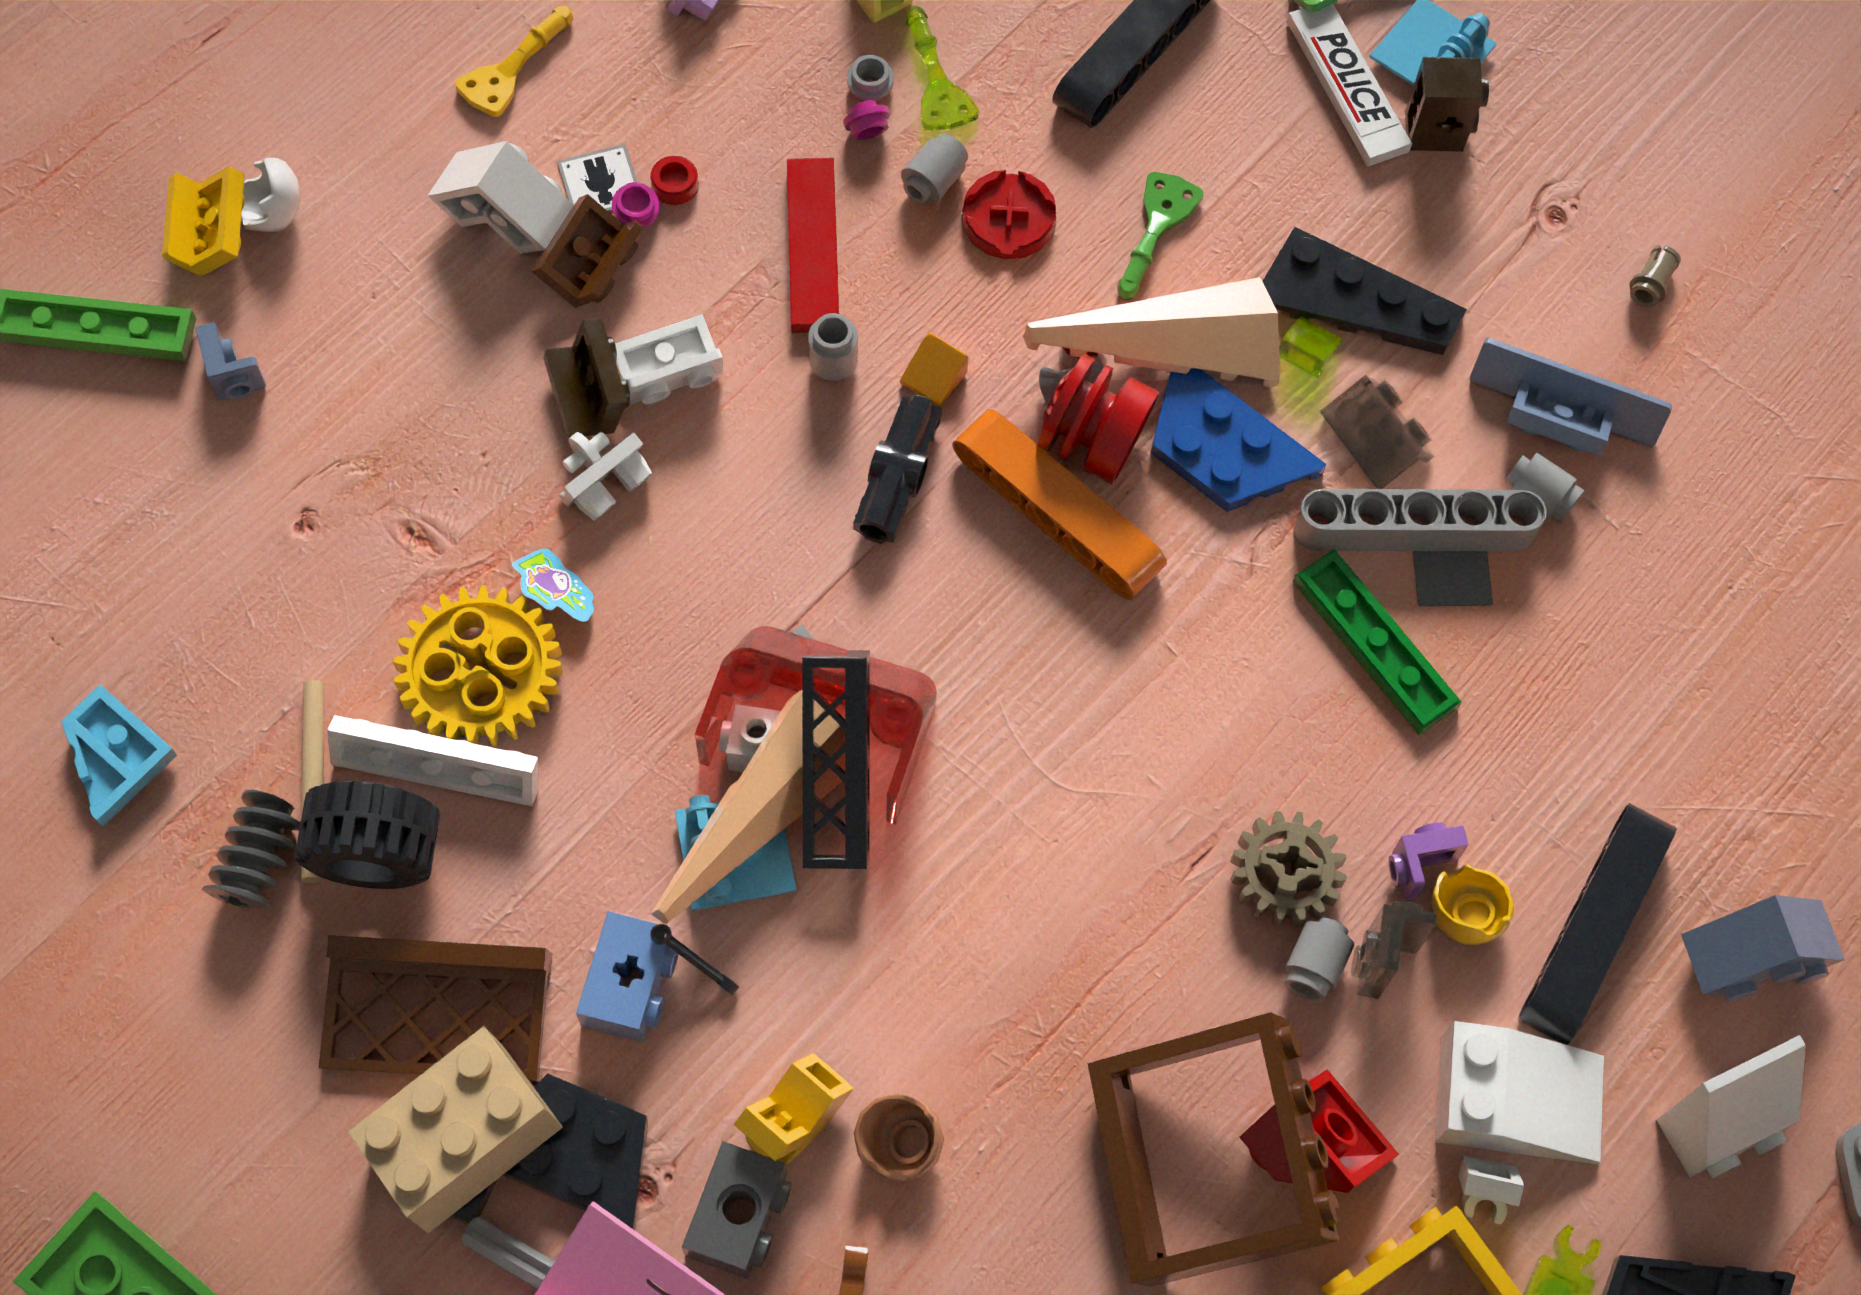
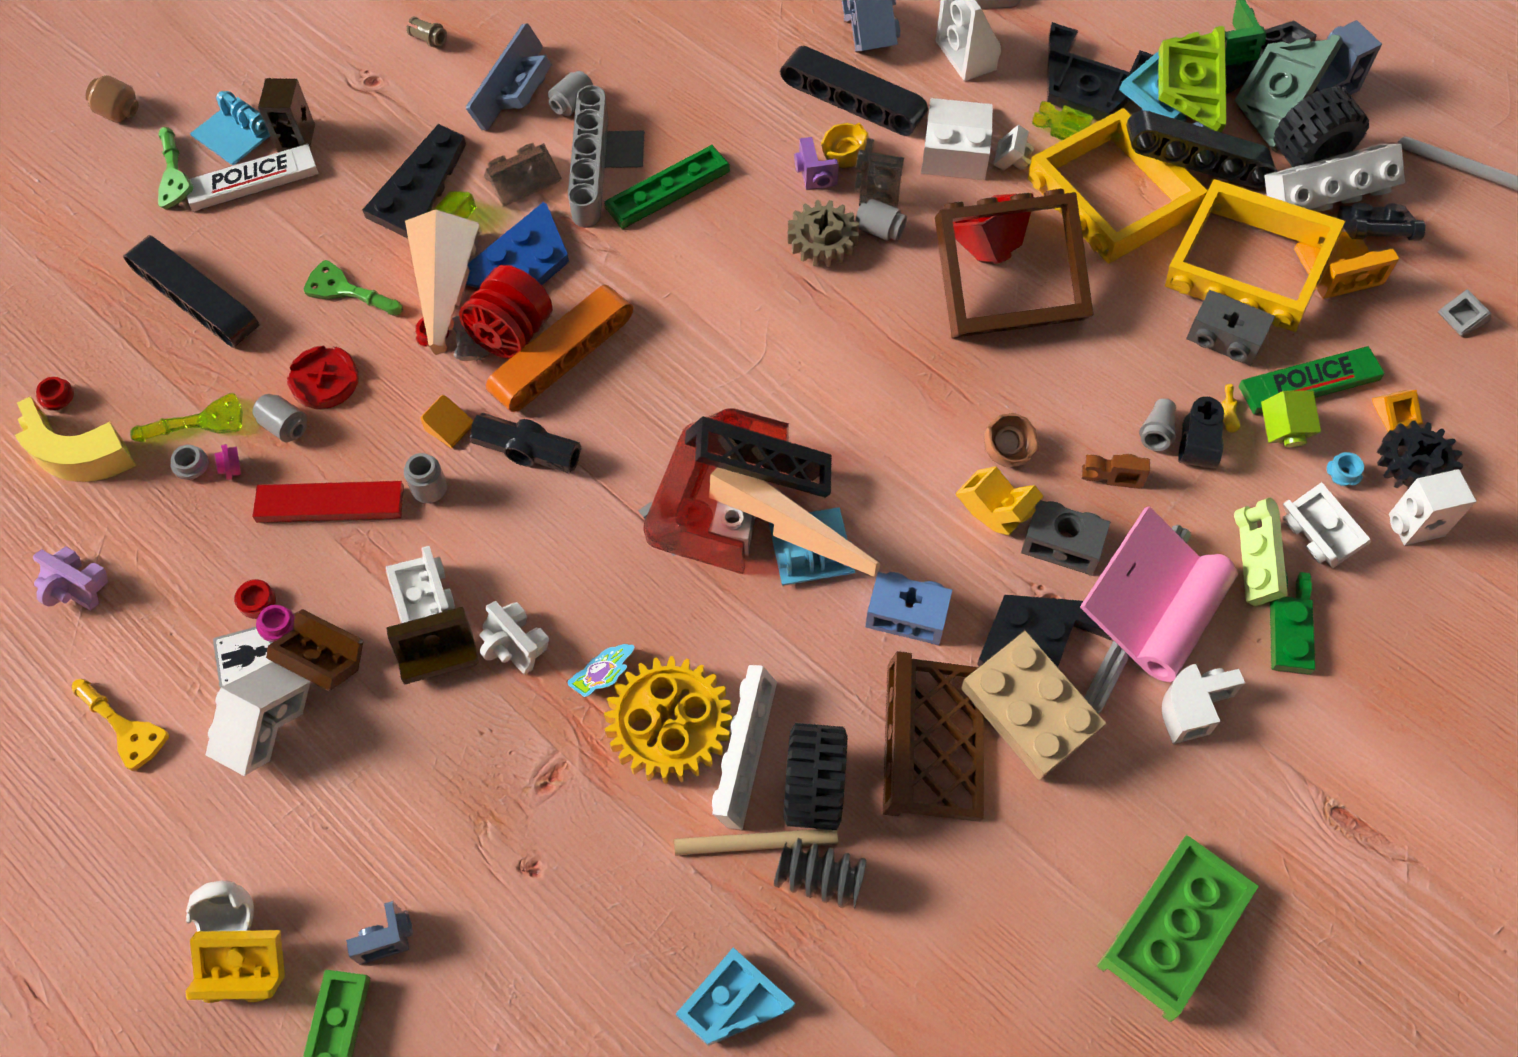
camera: 85 degrees left, 5 degrees down
(662, 935) = (886, 572): black hinge -> none

